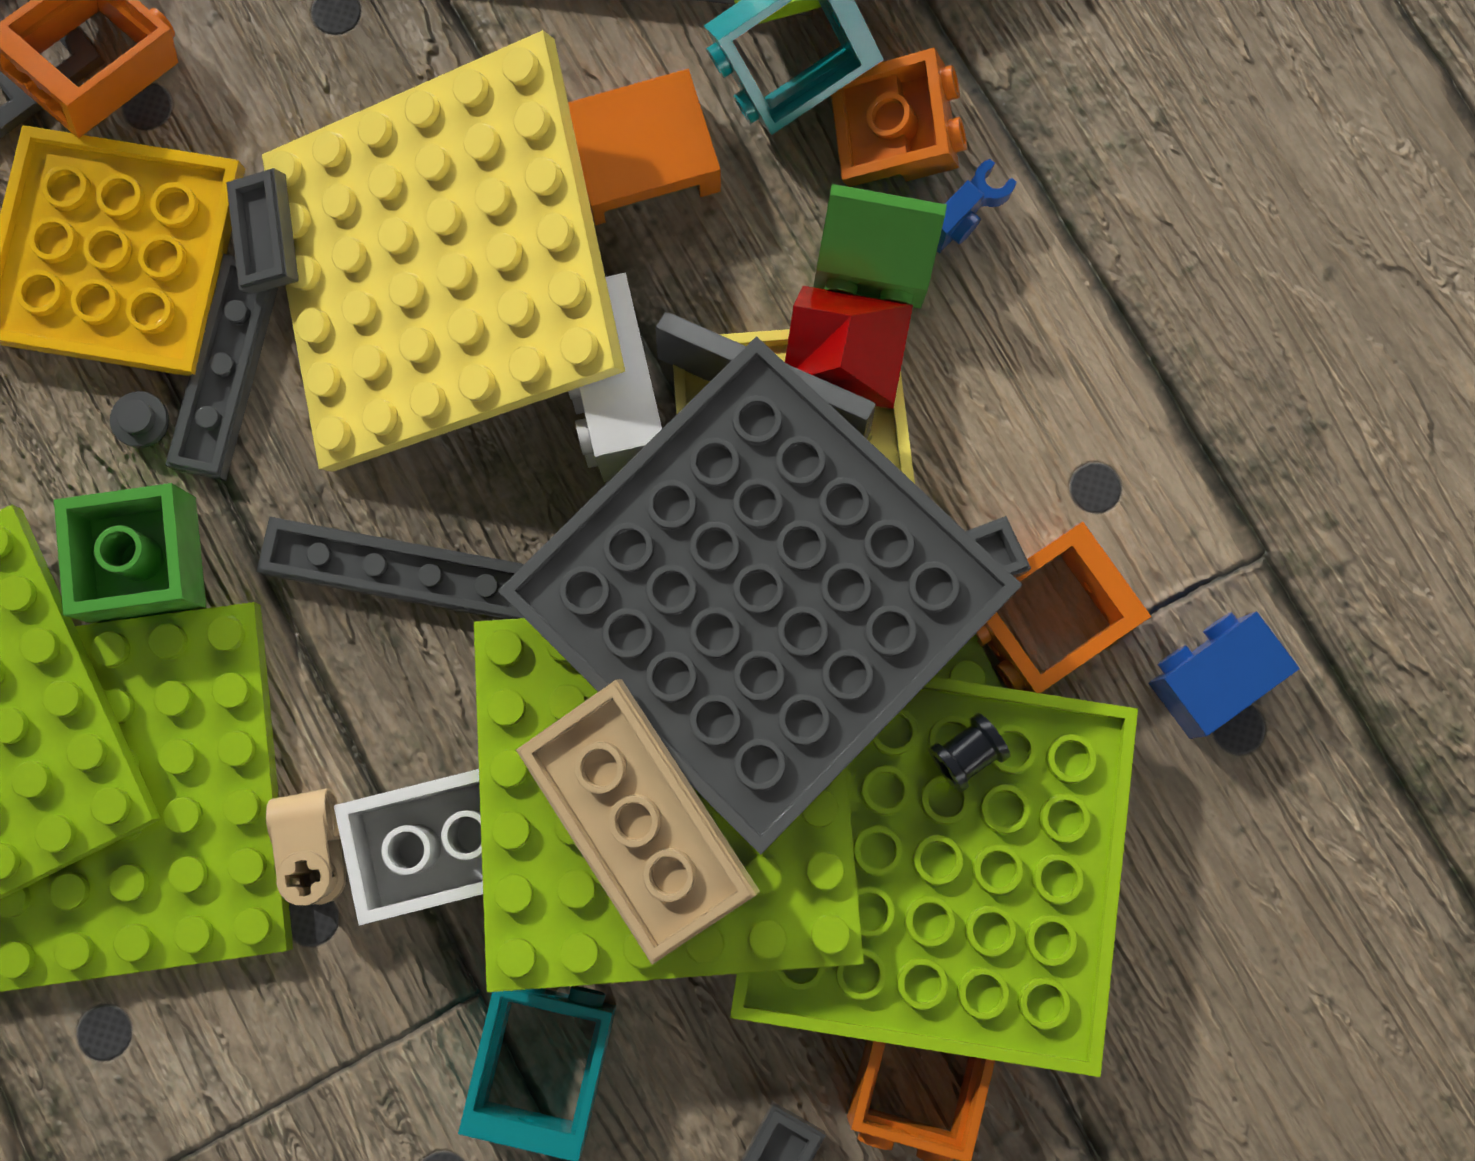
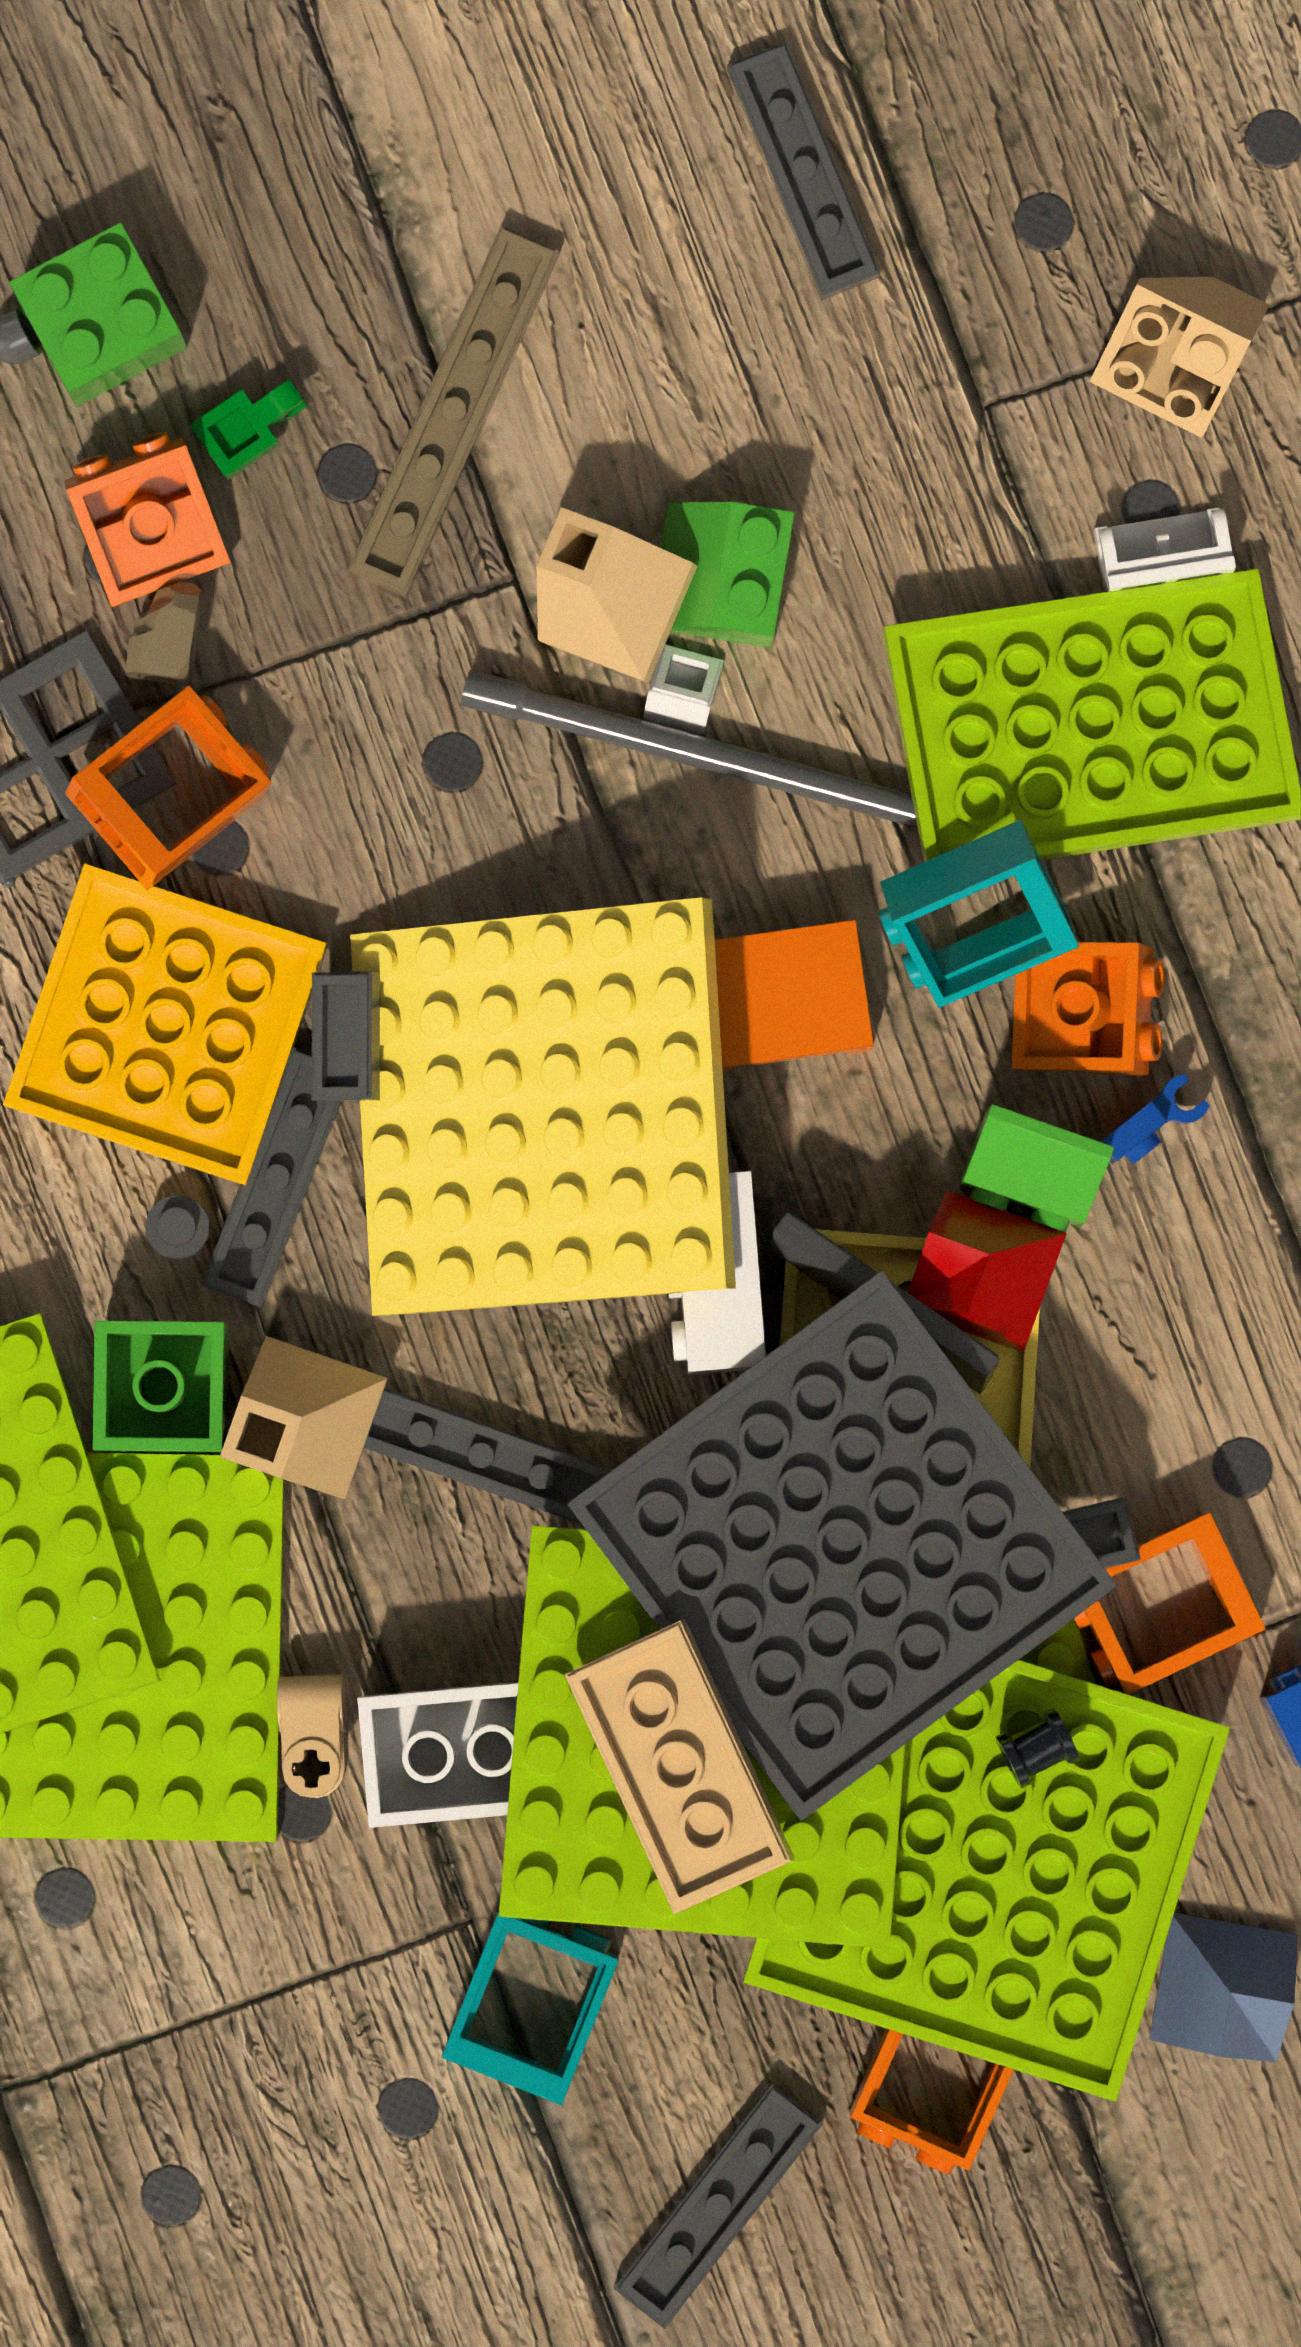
camera: 10 degrees right, 5 degrees up
(257, 562) = (304, 1417): none -> tan slope
(1174, 951) = (1225, 1988): none -> sand blue slope

